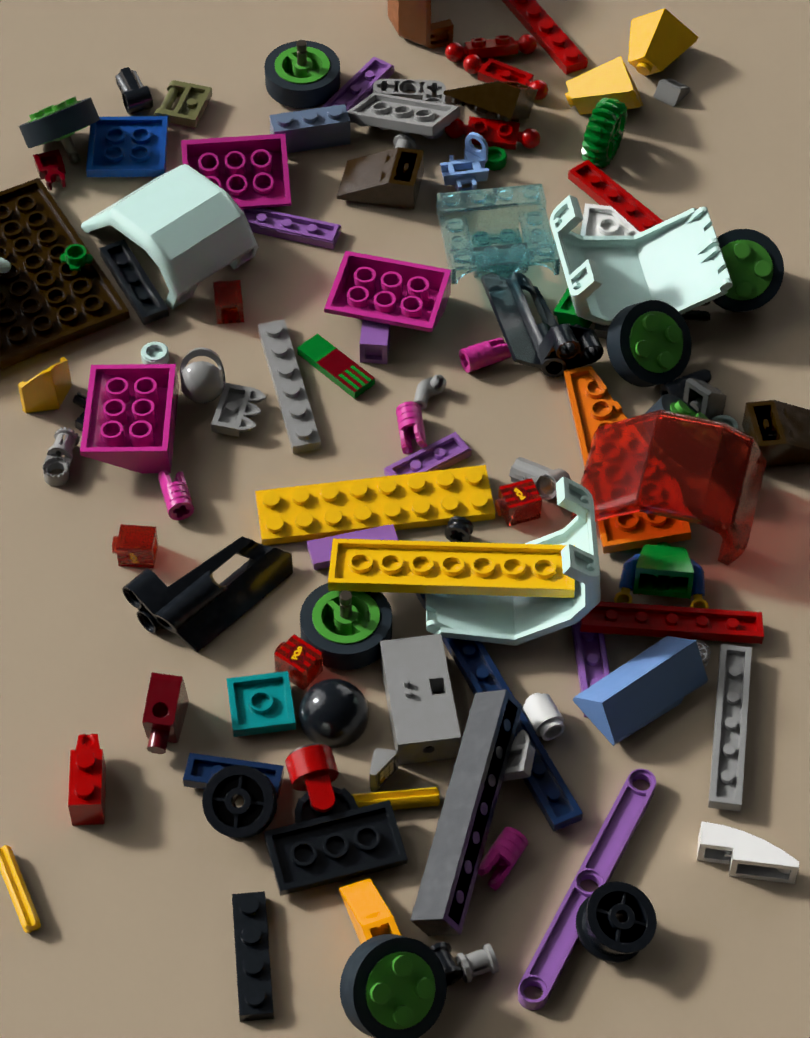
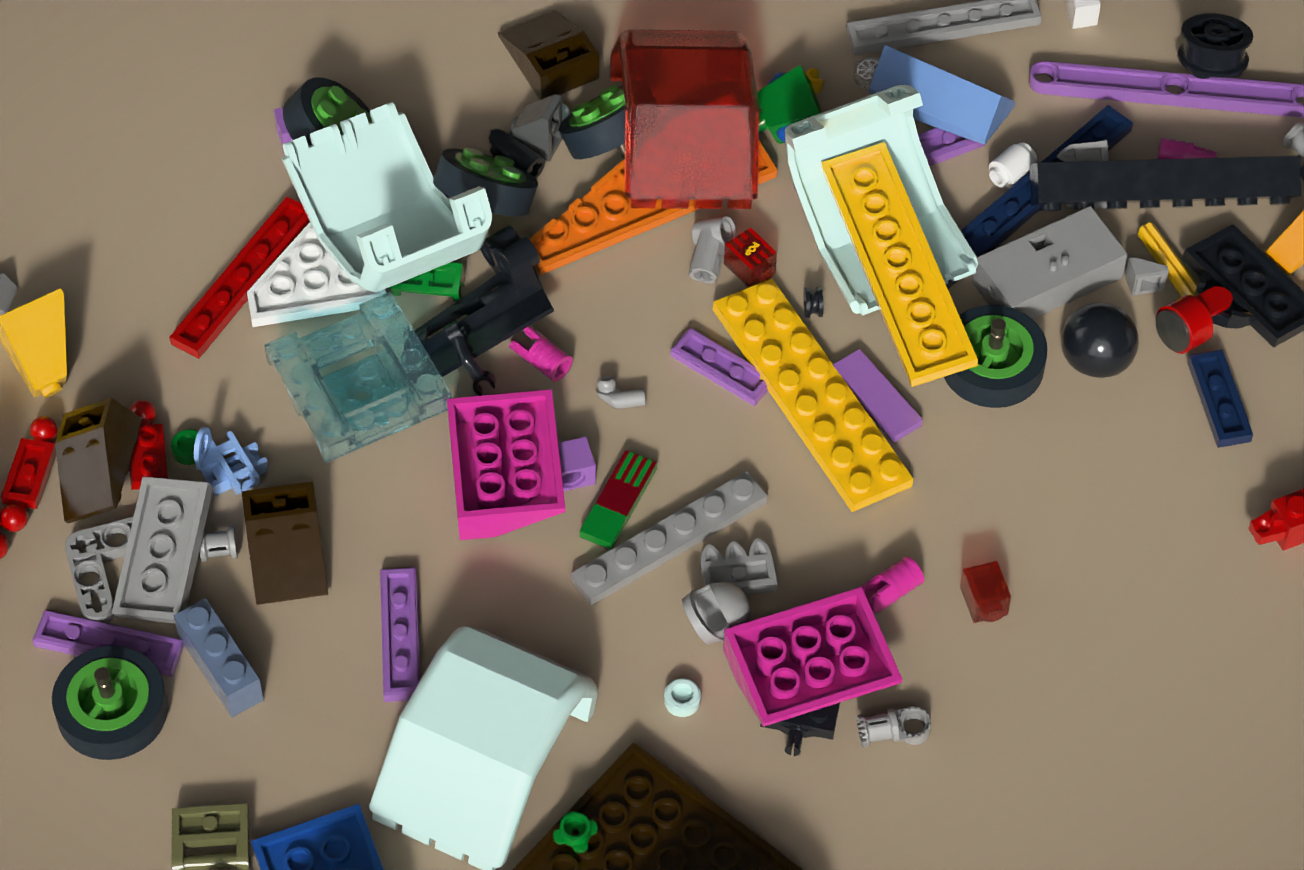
camera: 110 degrees left, 5 degrees up
(46, 389) = (801, 775): yellow slope -> none
(134, 282) = (578, 761): black plate -> none
(164, 711) = (1188, 474): dark red torso -> none
(199, 606) = (1066, 506): black panel -> none
(228, 301) = (569, 639): clear red brick -> none
(244, 166) = (336, 707): dark pink slope -> none
(258, 806) = (1258, 367): black wheel -> none
(261, 704) = (1123, 405): teal plate -> none
(300, 660) = (1057, 387): clear red brick -> none
(410, 426) = (683, 391): dark pink hinge -> none
(475, 312) = (458, 338): none -> black arm
(604, 132) = (126, 320): green gear -> none
(674, 622) = (832, 61): red plate -> none

